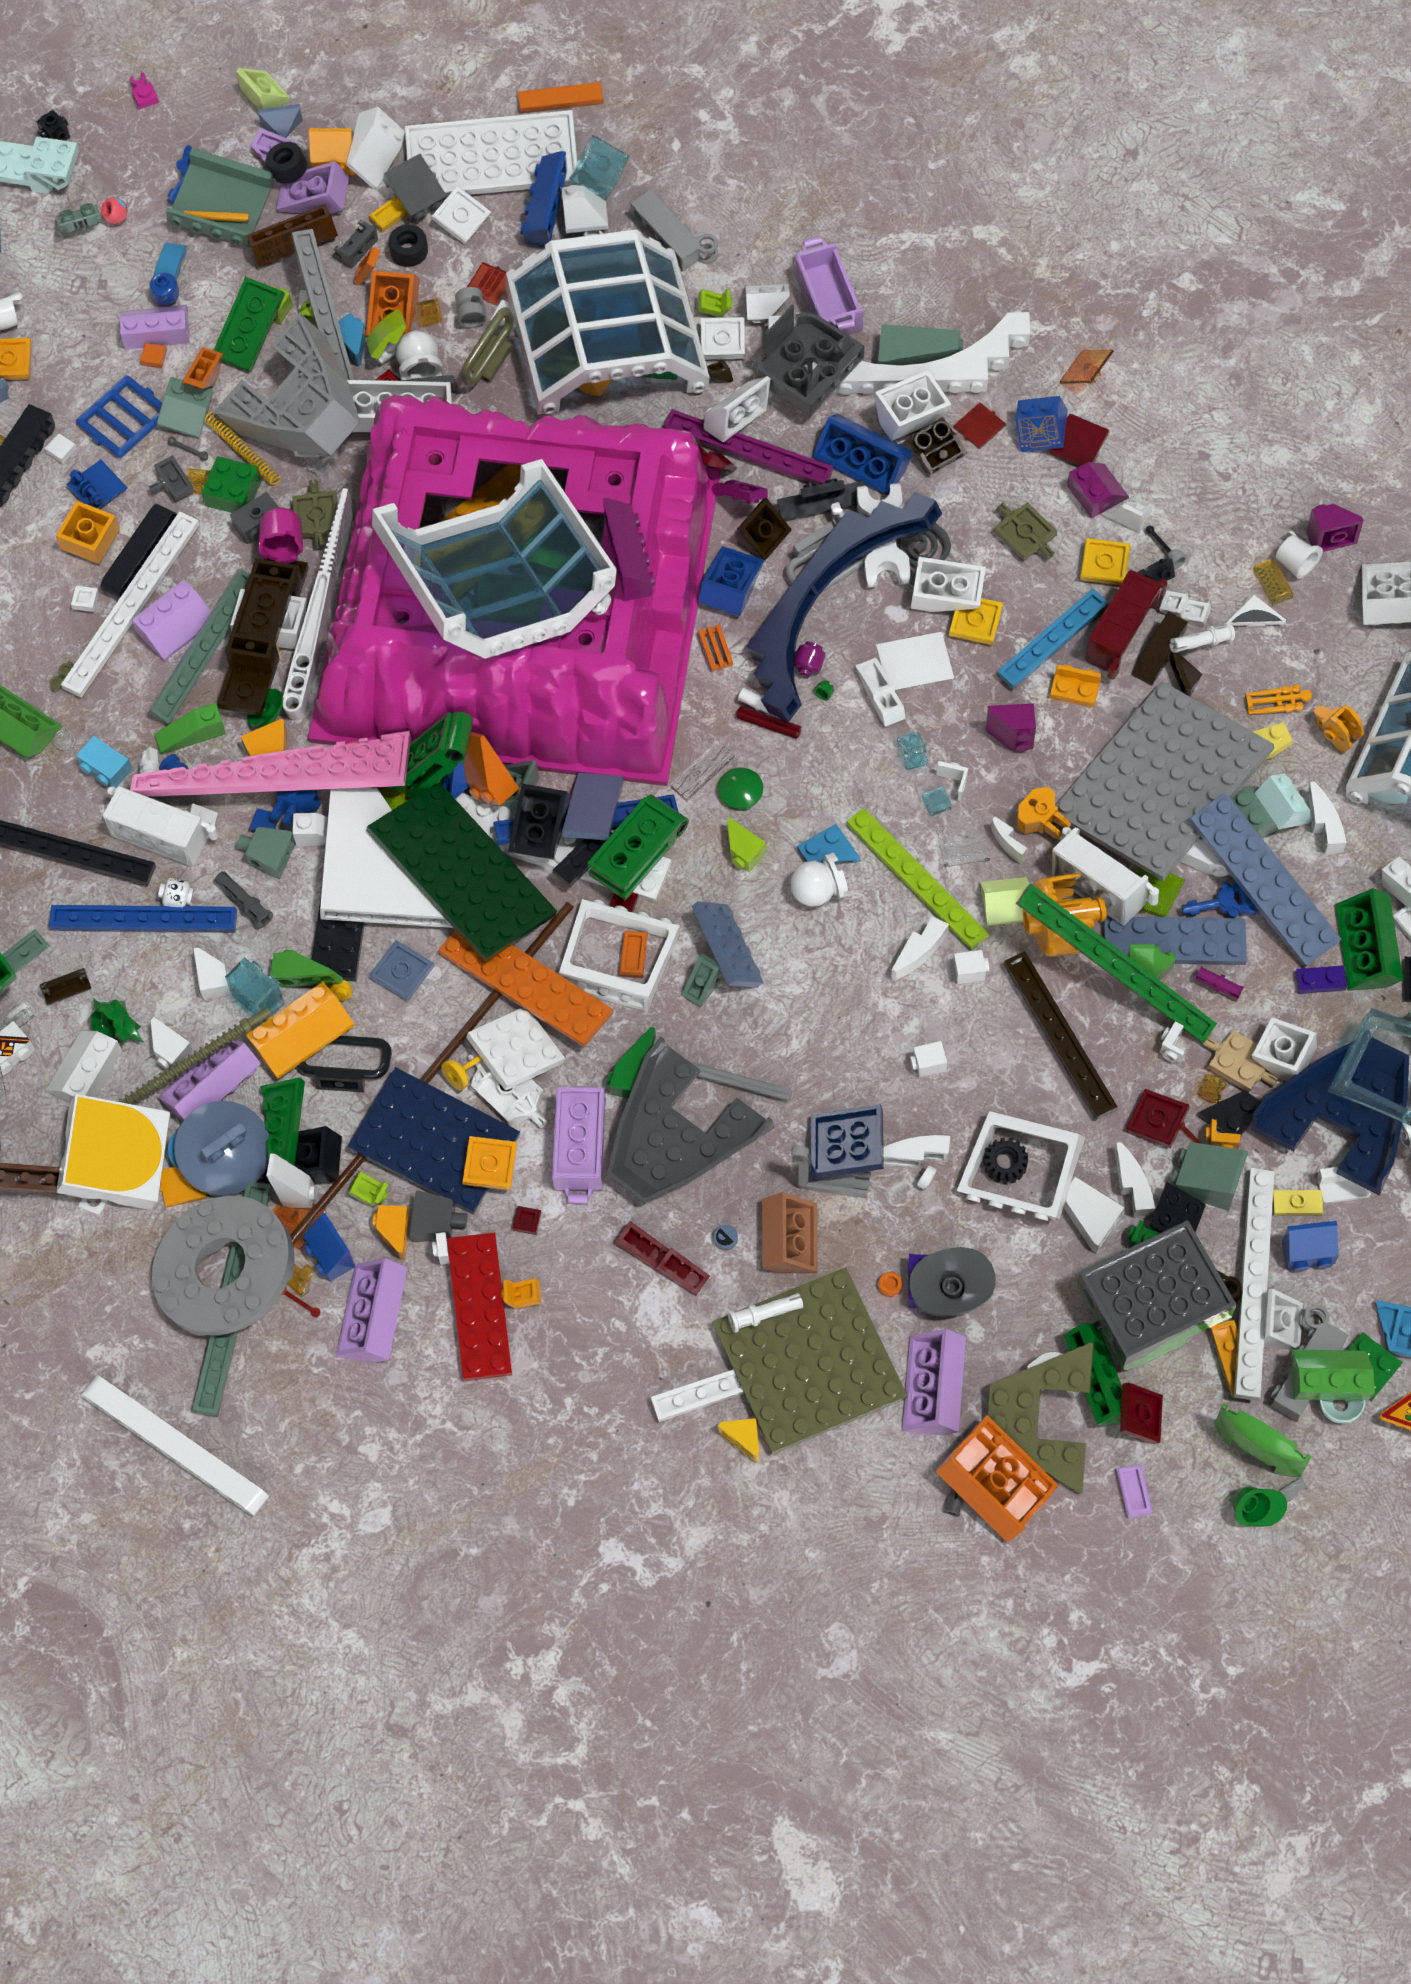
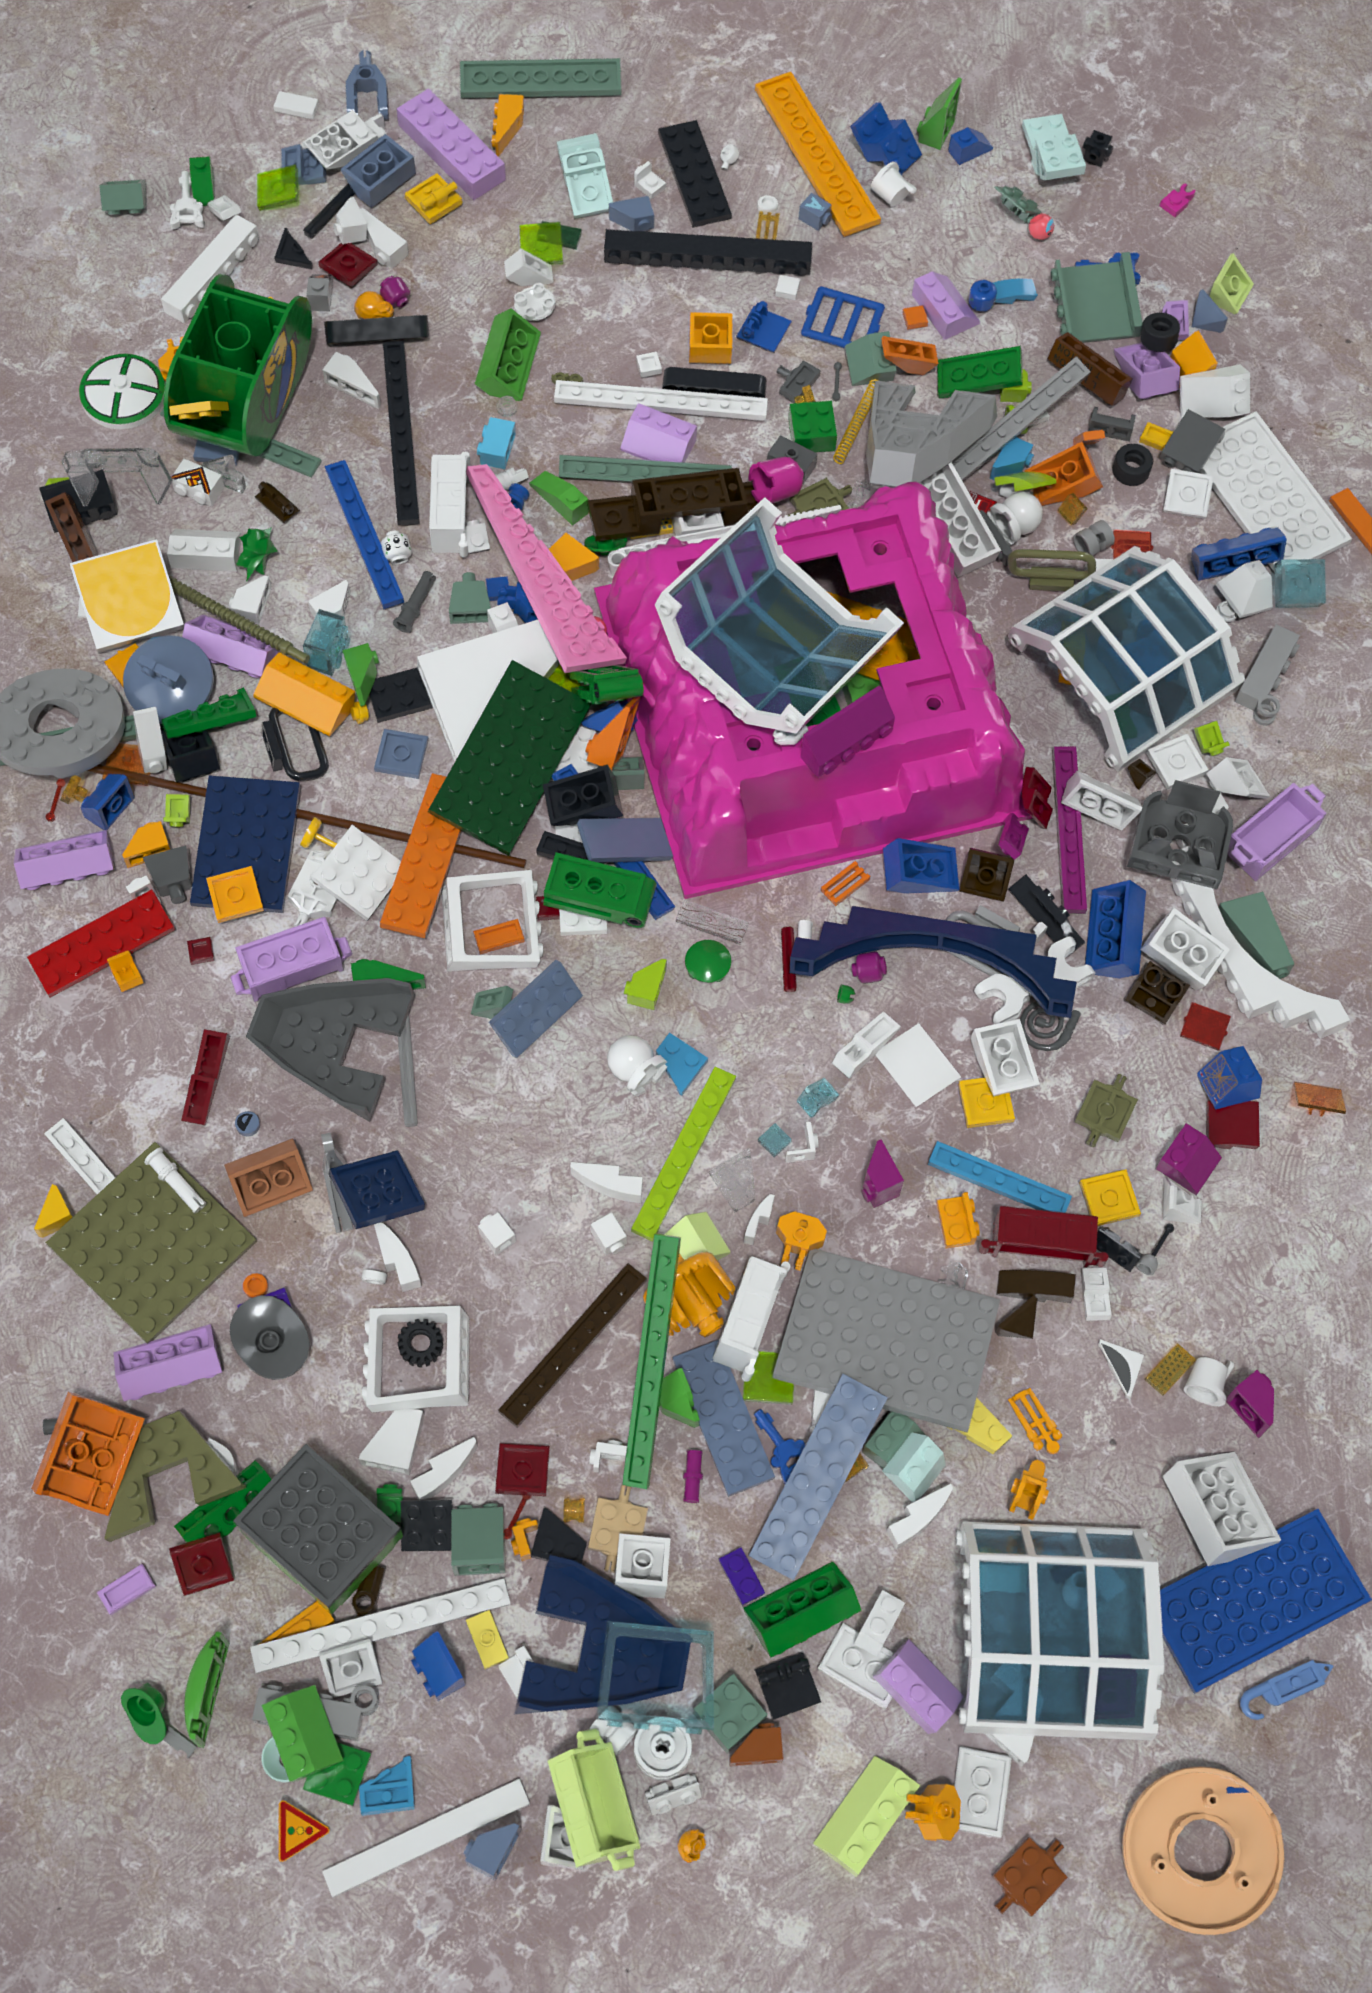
camera: 60 degrees right, 0 degrees up
(221, 216) = (1078, 304): light orange bar -> none
(1210, 636) = (1072, 1328): white pin -> none

